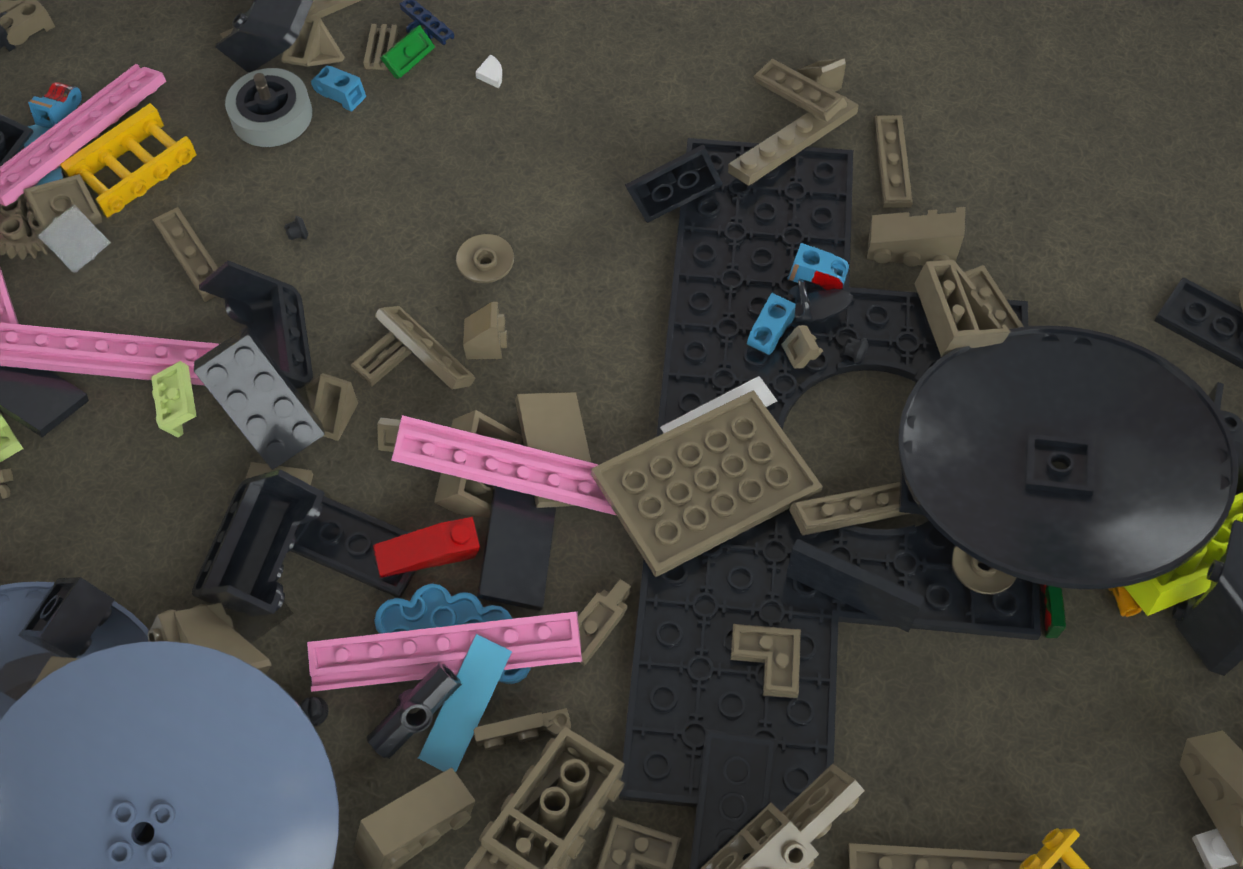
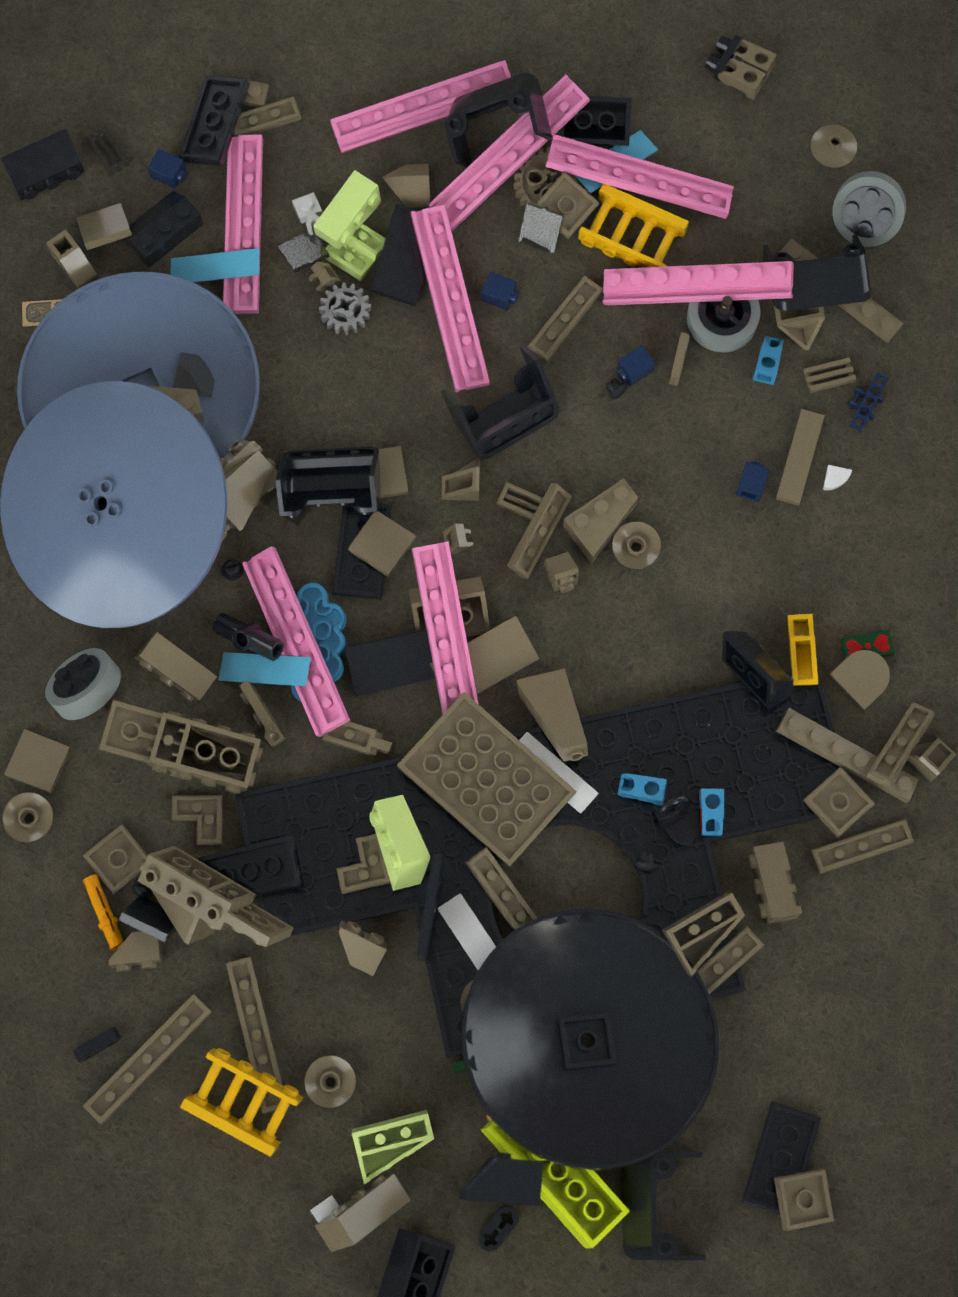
camera: 70 degrees right, 15 degrees up
(47, 471) = (353, 303): none -> light grey gear
(56, 104) = (666, 147): dark azure leg -> none
(68, 617) = (230, 383): black slope -> none
(122, 303) = (499, 291): none -> dark blue brick
(173, 398) = (428, 368): yellowish green bracket -> none
(222, 109) = (698, 283): none -> bright pink plate
(259, 397) = (436, 433): brick -> none
(281, 200) = (635, 366): none -> dark blue brick
(295, 160) = (679, 359): none -> dark tan tile
(363, 515) = (382, 543): none -> dark tan tile
(407, 52) = (827, 400): green plate -> none
(428, 547) = (369, 598): red slope -> none
(442, 283) = (600, 518): none -> dark tan wedge
(455, 94) = (800, 457): none -> dark tan tile
(463, 136) = (752, 481): none -> dark blue brick
(651, 385) = (555, 711): none -> dark tan slope
(662, 142) = (802, 649): none -> yellow slope
(681, 97) = (877, 642): none -> dark green tile
(713, 106) = (862, 676): none -> dark tan tile
(756, 597) = (399, 842): none -> yellowish green wedge
(801, 347) = (629, 817): dark tan tile -> none
(842, 159) = (839, 802): none -> dark tan tile
(878, 692) = (362, 948): none -> dark tan slope
(904, 555) = (467, 929): none -> white sticker
(1056, 780) = (316, 1079): none -> dark tan dish
(1139, 734) = (390, 1141): none -> yellowish green wedge

